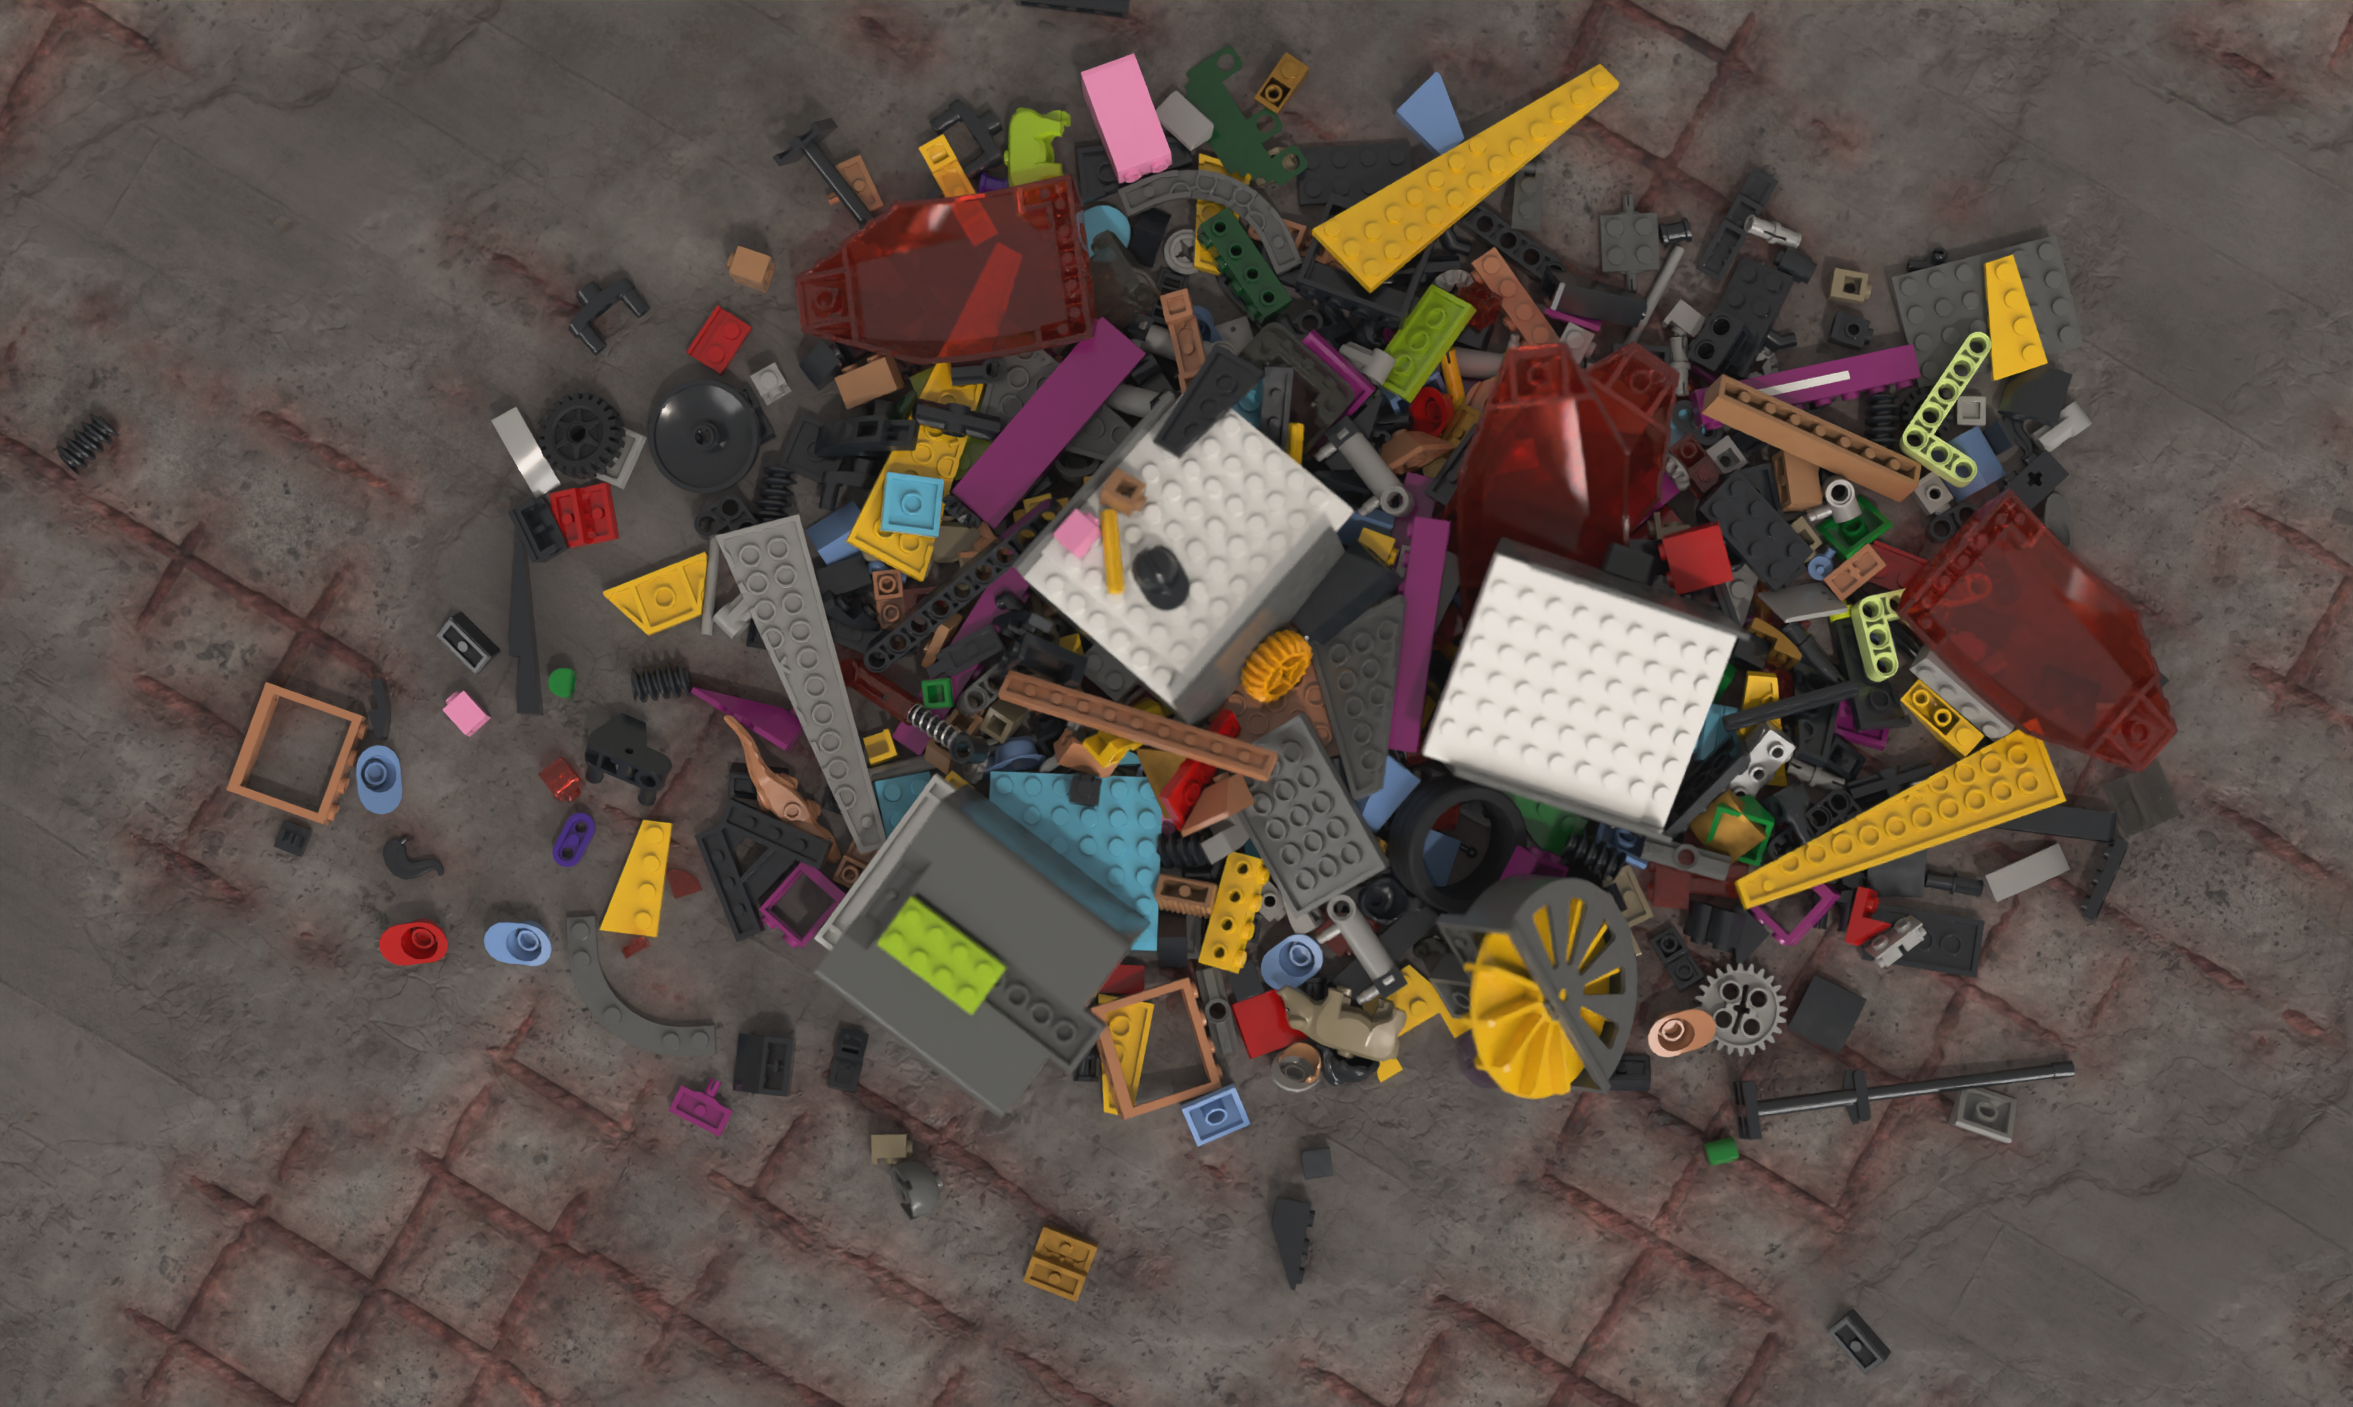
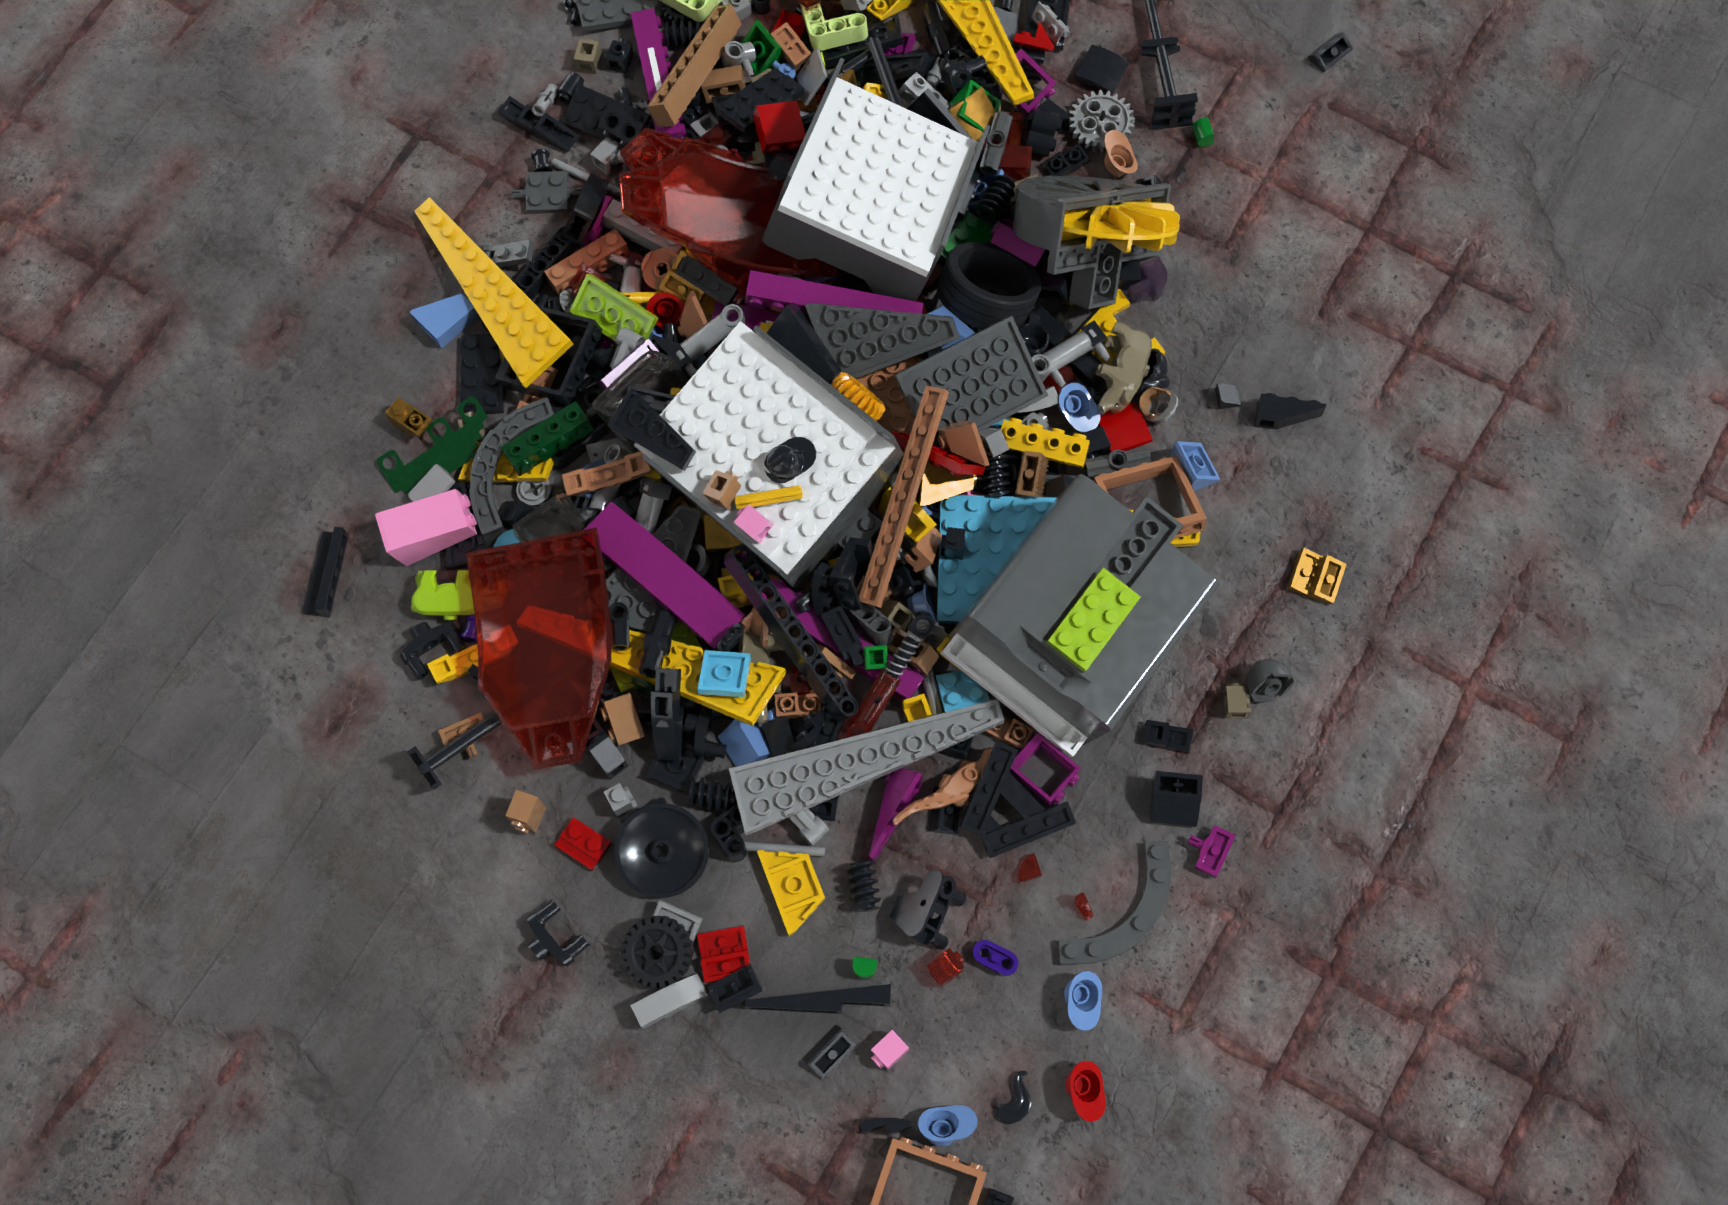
camera: 90 degrees left, 15 degrees down
(640, 889) = (1038, 904): yellow wing -> none

